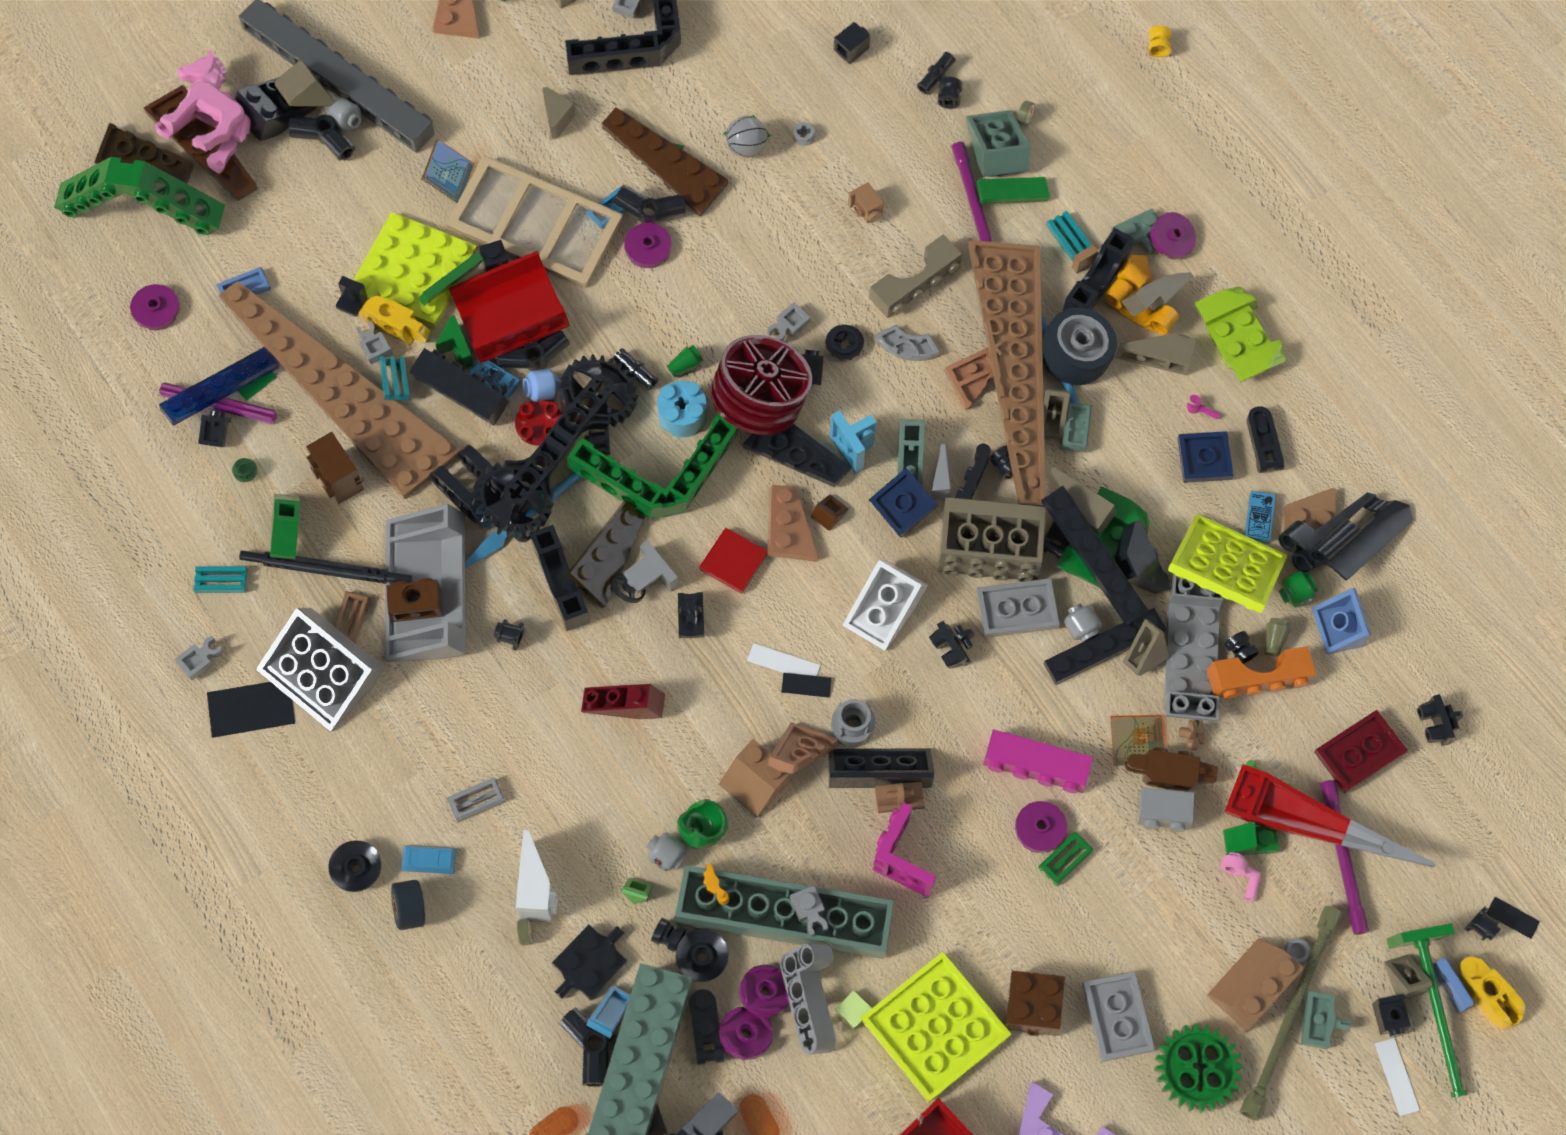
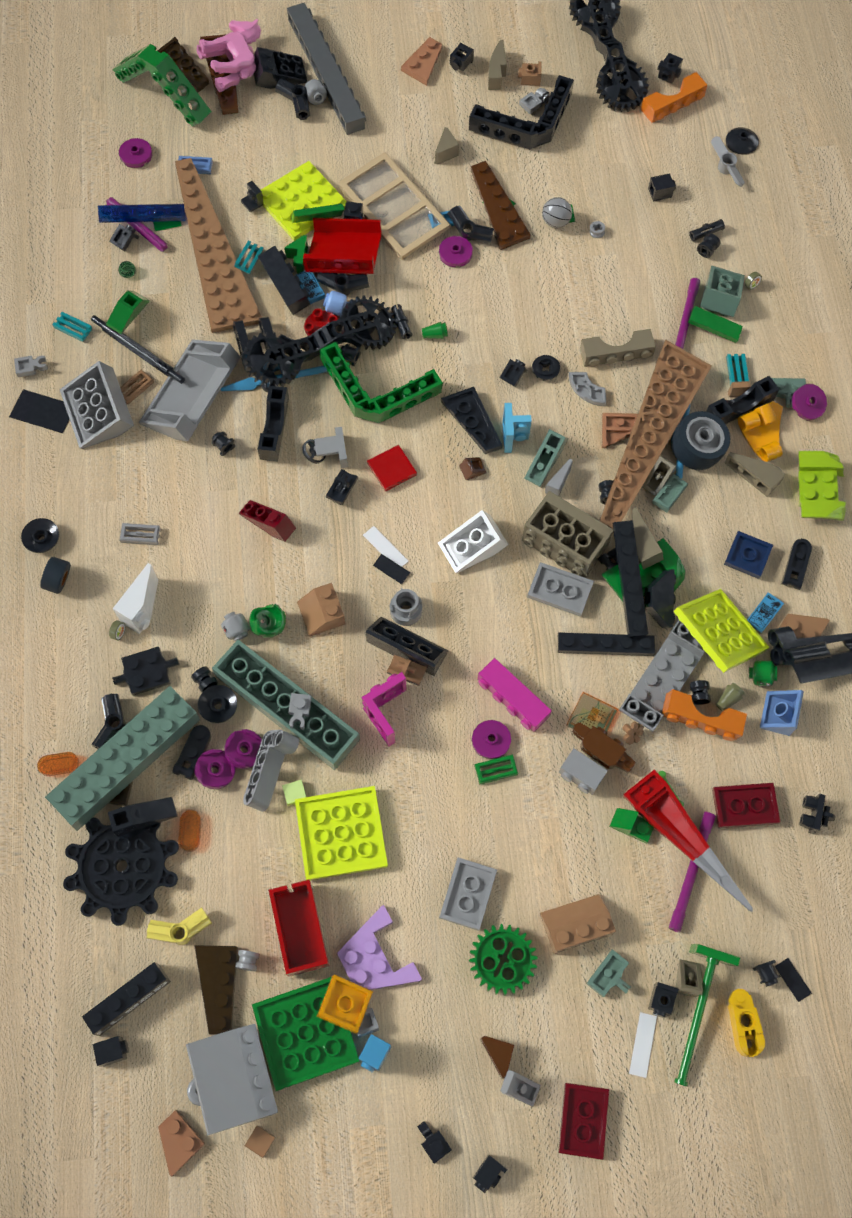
camera: 30 degrees right, 0 degrees up
(302, 87) = (299, 63): dark tan slope -> none
(334, 468) = (176, 291): reddish brown brick -> none
(373, 344) = (249, 232): light grey plate -> none
(394, 319) = (270, 223): yellow piece -> none
(427, 606) = (167, 393): reddish brown brick -> none
(428, 859) = (89, 555): dark azure tile -> none
(447, 170) = (356, 150): piece -> none
(607, 554) = (312, 424): dark brown wing -> none
(609, 1012) = (130, 708): dark azure tile -> none
(636, 890) = (202, 641): bright green slope -> none
(683, 396) = (414, 357): medium azure brick -> none
(712, 884) = (247, 659): light orange piece -> none
(761, 384) = (476, 357): dark red wheel -> none
(788, 526) = (438, 465): nougat wing -> none
(790, 320) = (517, 337): light grey plate -> none
(799, 748) = (358, 604): nougat wing -> none
(866, 203) = (611, 288): medium nougat brick -> none
(903, 502) = (523, 484): dark blue plate -> none
(957, 654) = (506, 590): black hips -> none
(974, 474) = (583, 489): black plate -> none
(1035, 1003) = (415, 853): reddish brown brick -> none
(1082, 622) = (598, 620): light grey head -> none
(1147, 649) = (632, 660): dark tan slope -> none
(1155, 293) = (775, 430): dark tan slope -> none
(1200, 408) = (762, 520): dark pink hand -> none
(1237, 865) = (611, 836): bright pink plate -> none
(1255, 1101) = (530, 1004): olive hose -> none
(1298, 950) = (621, 918): light grey tile -> none
(1452, 985) = (719, 1002): medium blue tile -> none

